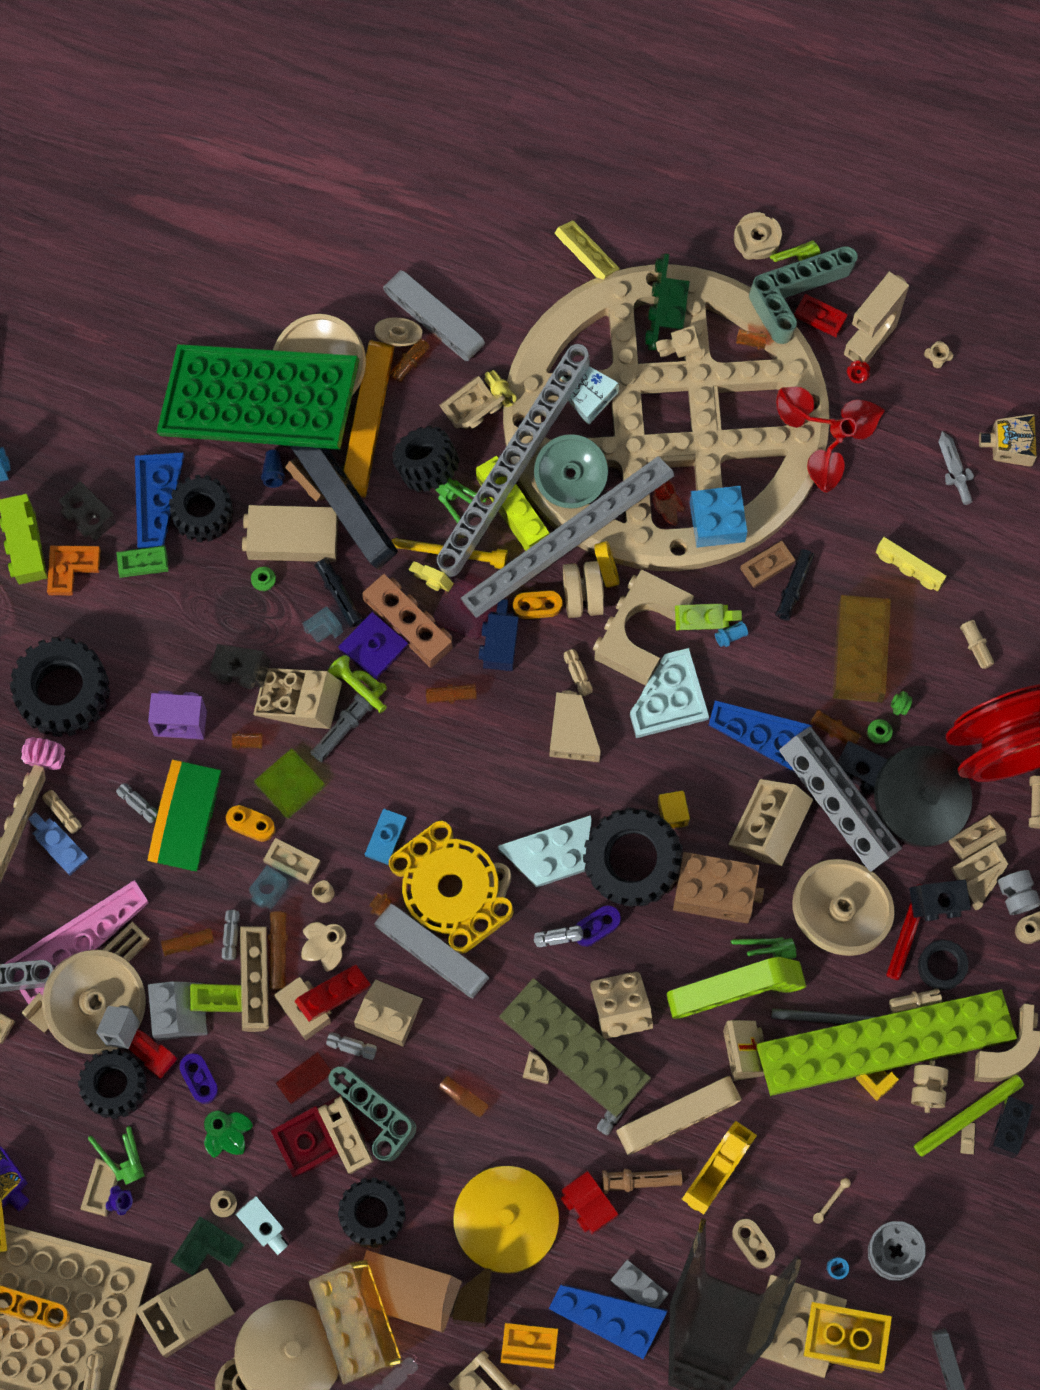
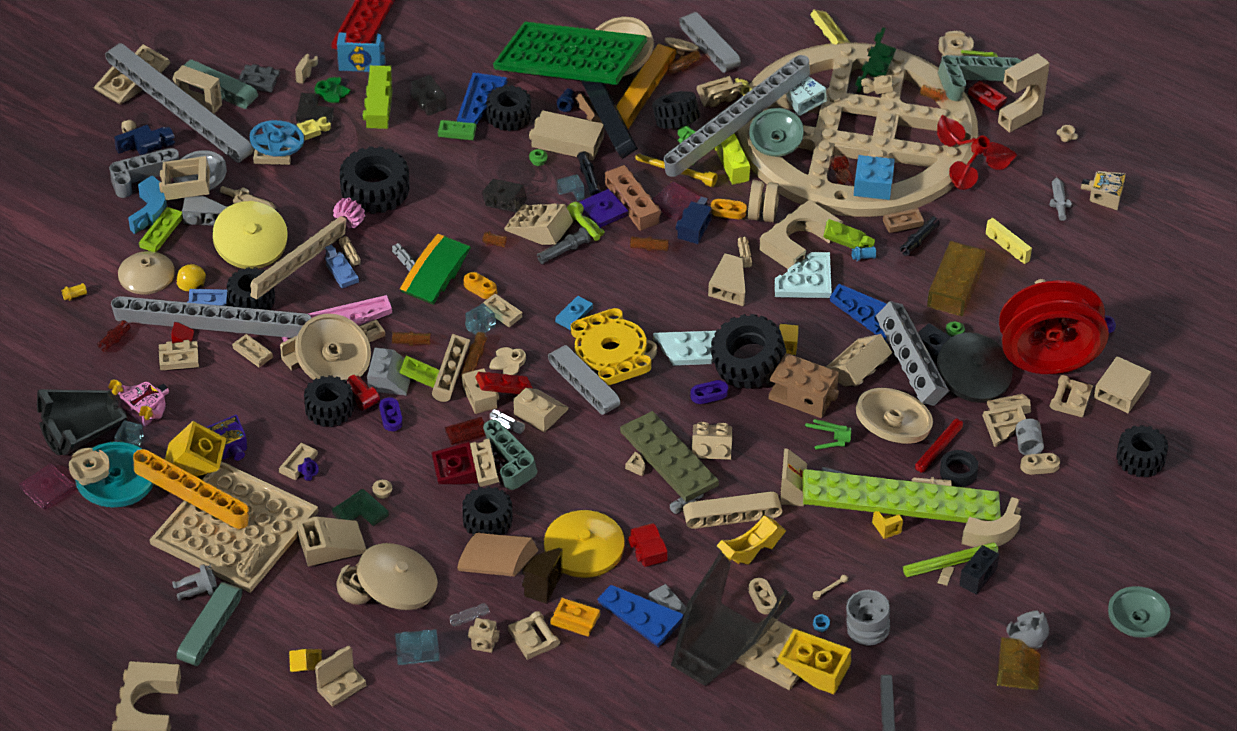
camera: 15 degrees right, 25 degrees down
(65, 562) = (406, 119): orange plate -> none
(118, 1026) = (345, 365): light grey brick -> none
(131, 1169) = (323, 450): bright green plant -> none
(177, 715) = (450, 210): medium lavender brick -> none
(228, 1136) = (398, 451): green plate -> none
(230, 935) = (443, 342): light grey axle -> none
(255, 1214) = (404, 498): light aqua torso -> none
(289, 783) = (516, 270): clear neon green plate -> none
(323, 891) = (518, 331): tan hinge -> none
(355, 1321) = (452, 567): clear yellow brick -> none
(379, 904) = (555, 344): clear orange plate -> none
(434, 578) = (659, 176): light yellow plate -> none
(463, 1096) = (577, 466): clear orange axle -> none
(558, 936) = (679, 389): light grey axle -> none
(567, 536) = (758, 170): light grey plate -> none
(607, 564) = (785, 193): yellow beam -> none
(628, 1180) = (682, 539): medium nougat pin -> none
(770, 974) = (802, 434): lime beam -> none
(834, 728) = (920, 318): clear orange pin -> none
(854, 375) = (1000, 130): red plate -> none
(901, 703) = (976, 315): bright green plate -> none
(929, 1088) = (925, 532): tan wheel -> none
(953, 895) = (968, 425): black brick -> none

